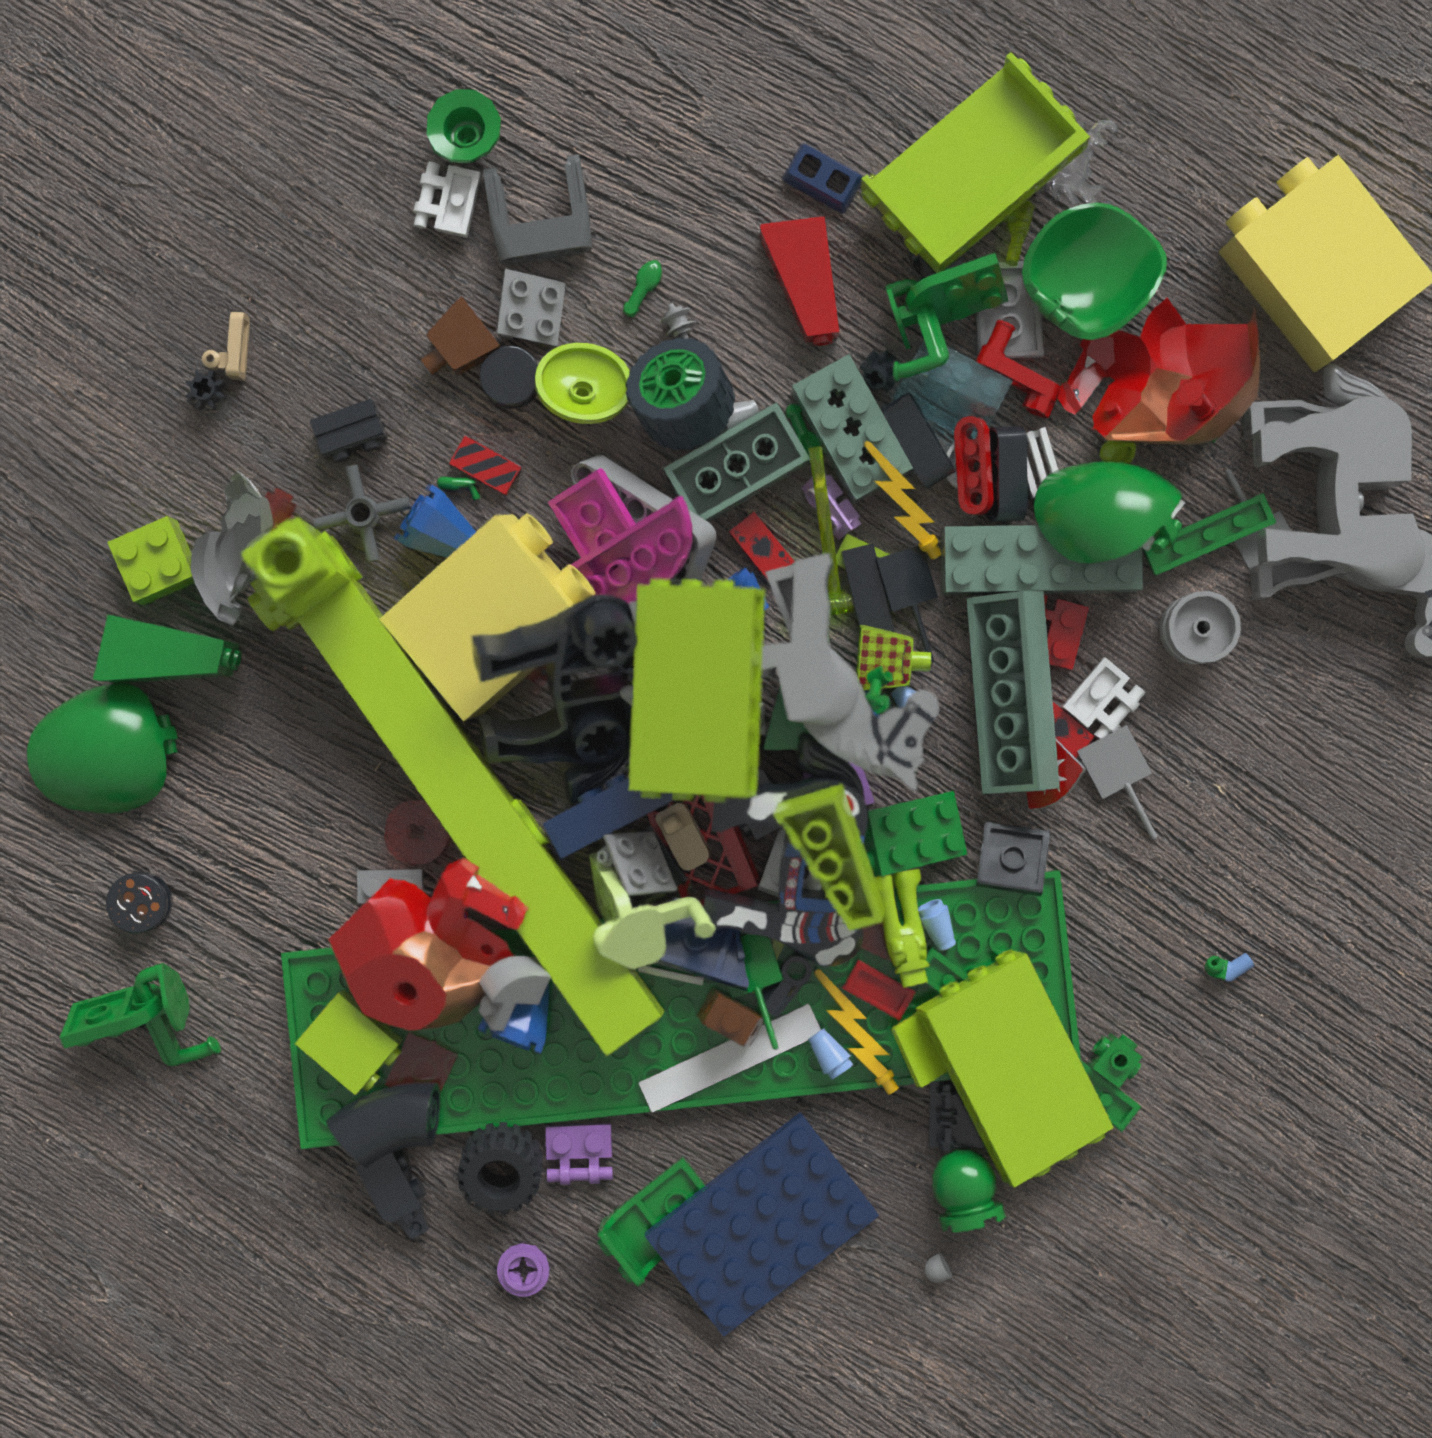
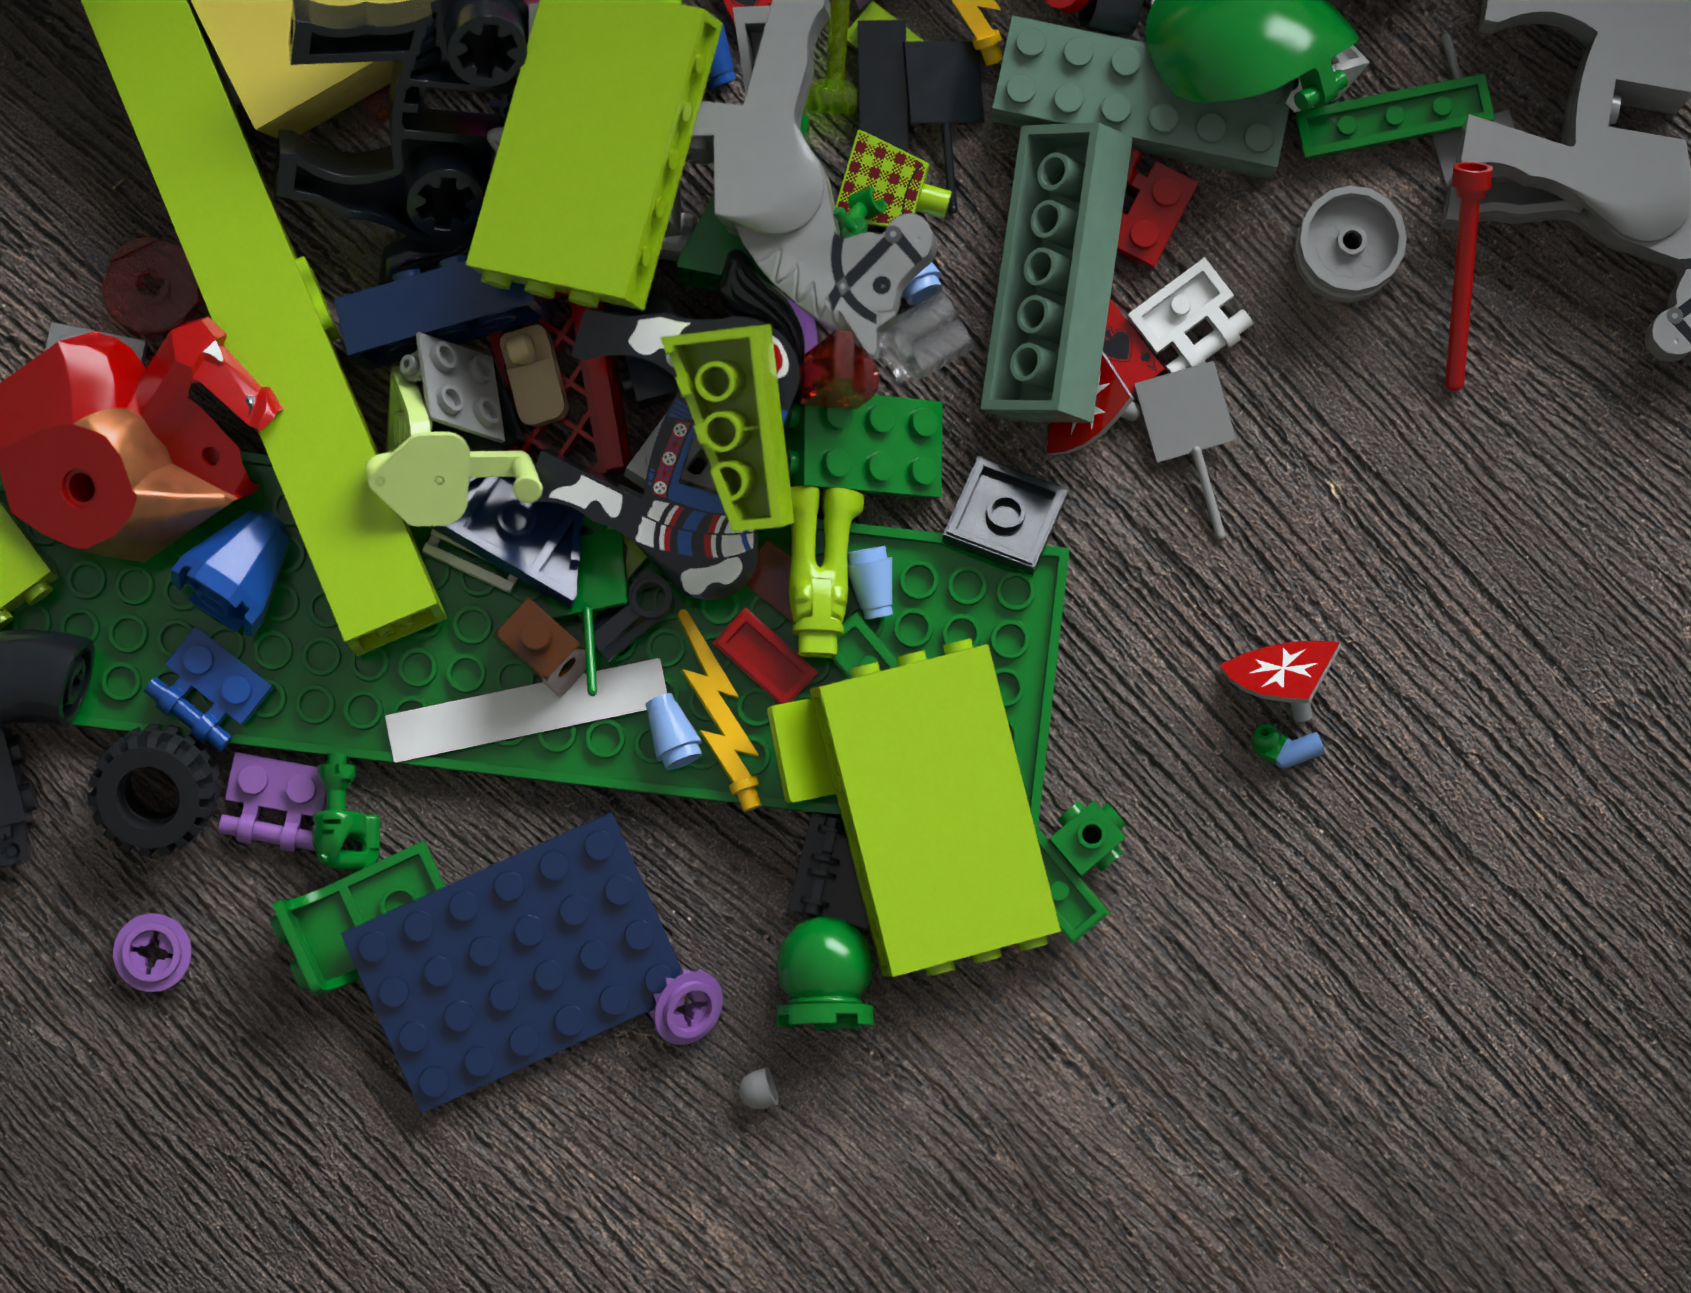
camera: 15 degrees right, 5 degrees down
(421, 1062) = (80, 610): clear red piece -> none
(511, 982) = (228, 507): light grey brick -> none
(523, 1083) = (217, 676): none -> blue plate
(625, 1161) = (337, 824): none -> green piece
(887, 1229) = (698, 1016): none -> medium lavender gear
(889, 800) = (838, 373): none -> clear red arch
(939, 750) = (925, 339): none -> clear piece
(1218, 920) = (1284, 672): none -> red shield
(1278, 575) = (1471, 184): none -> red piece

